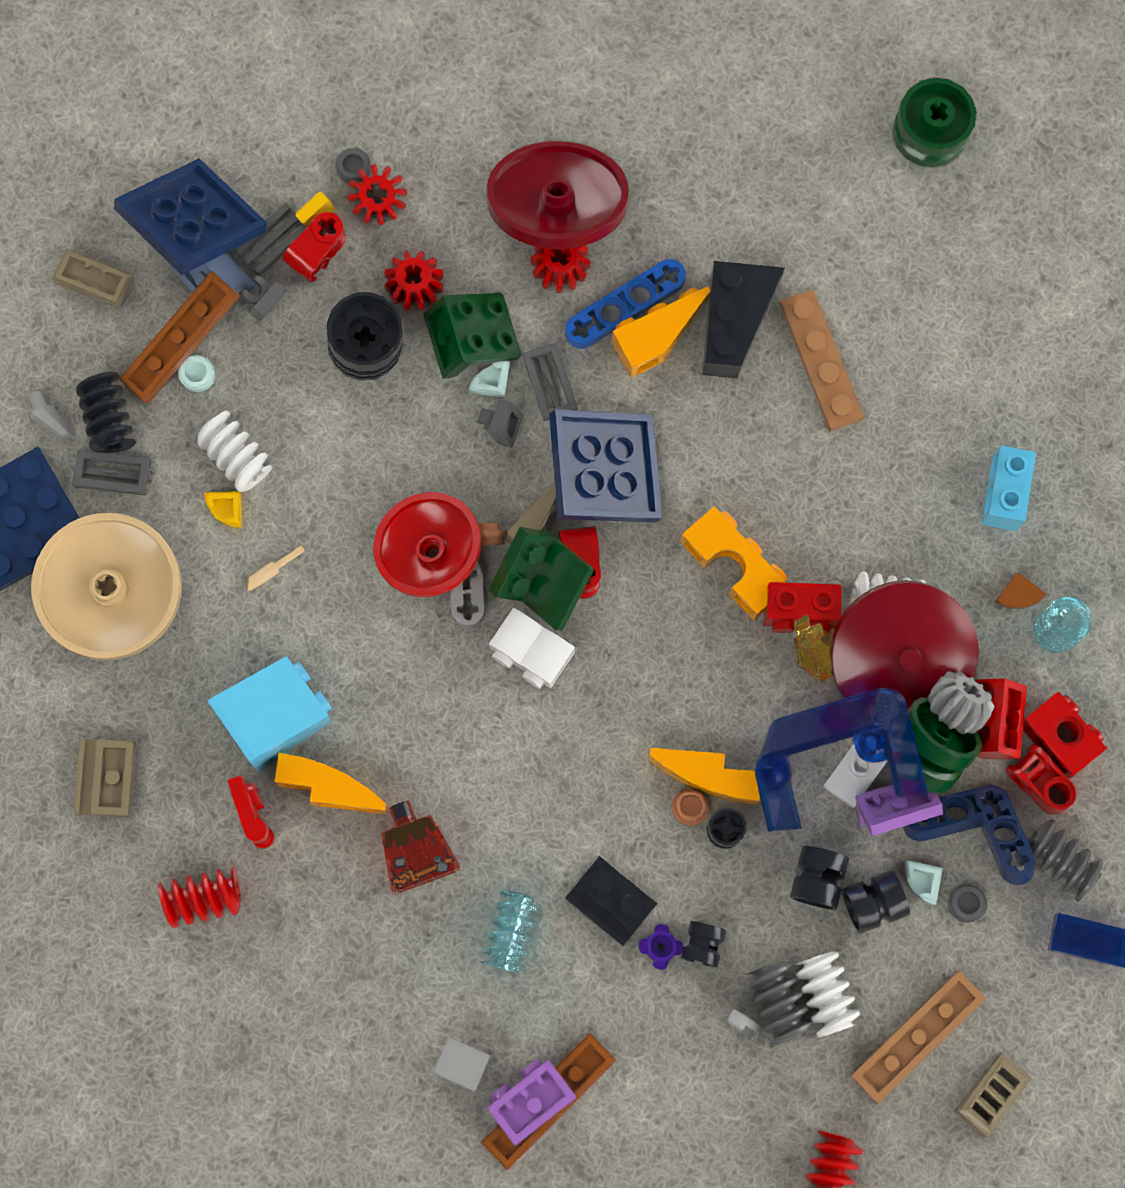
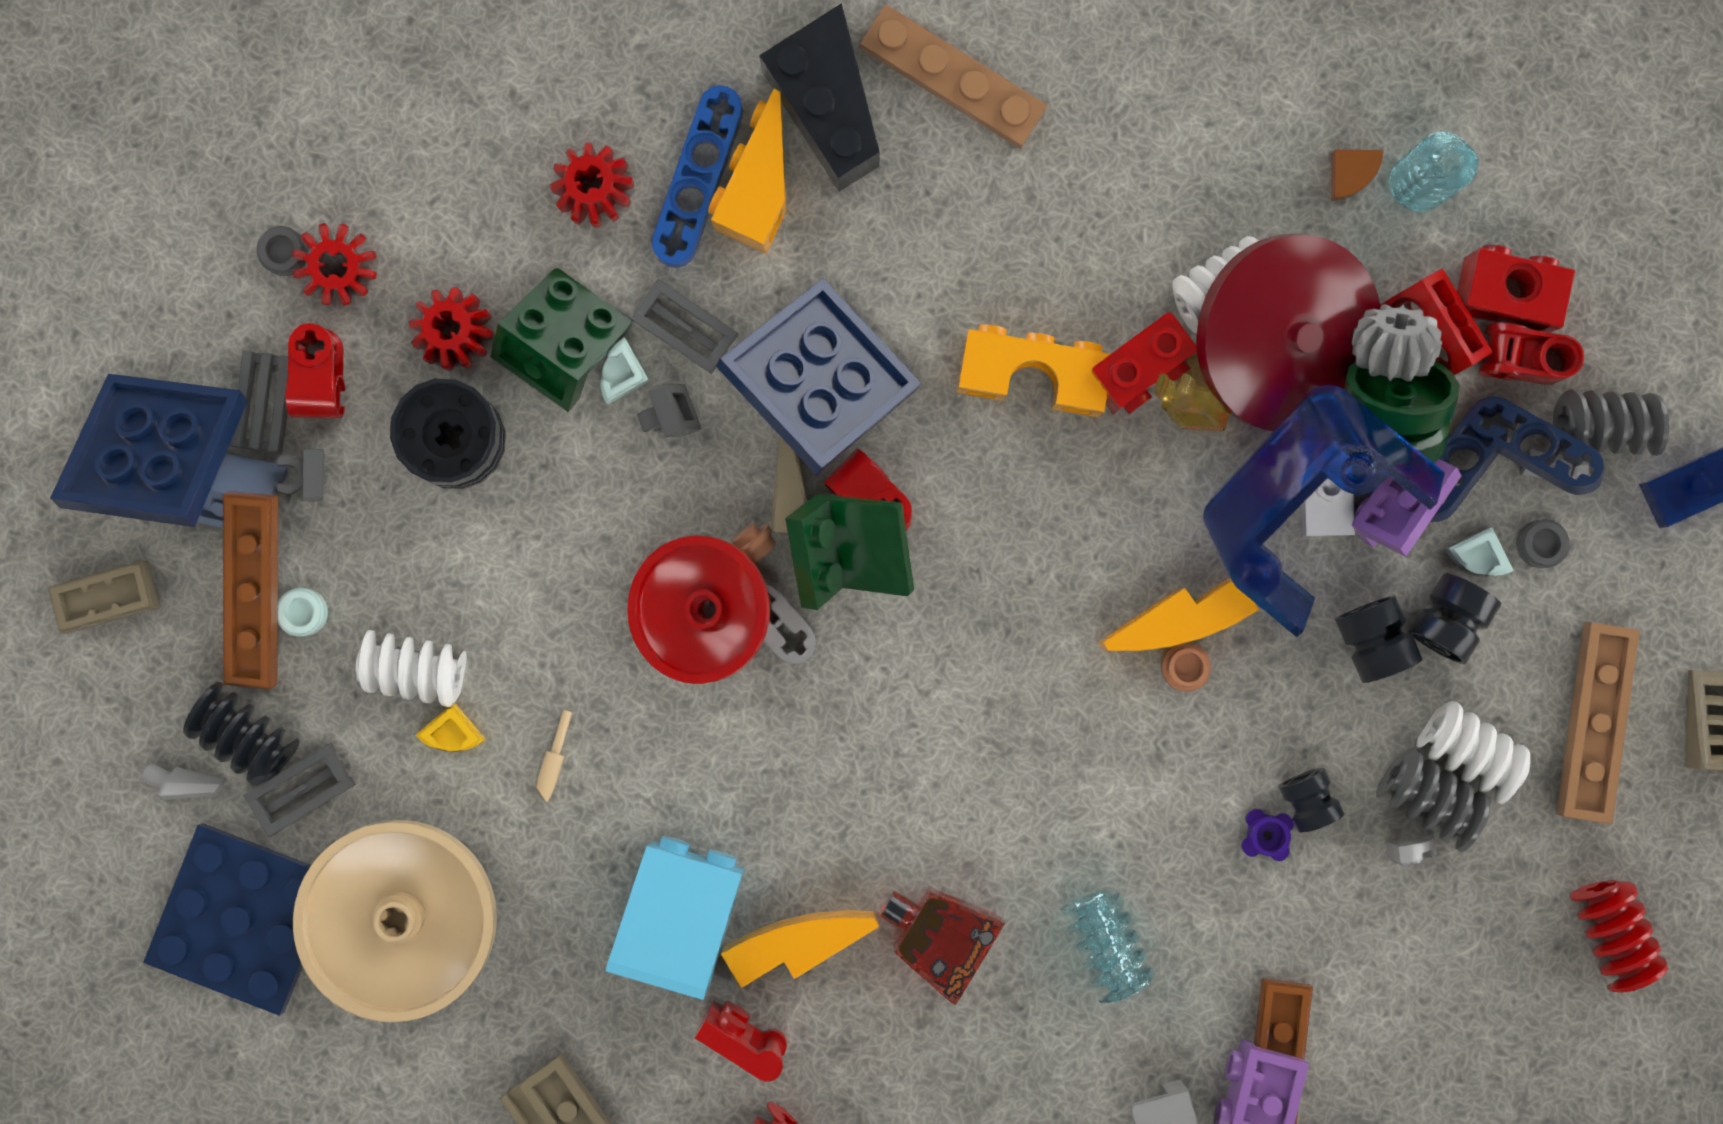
camera: 30 degrees left, 10 degrees up
(315, 206) = (278, 329): yellow tile -> none
(531, 648) = (894, 632): white brick -> none
(557, 195) = (531, 112): dark red dish -> none
(611, 901) = (1180, 828): black plate -> none
(728, 823) = (1251, 660): black wheel -> none
(1008, 488) = (1260, 64): medium azure brick -> none

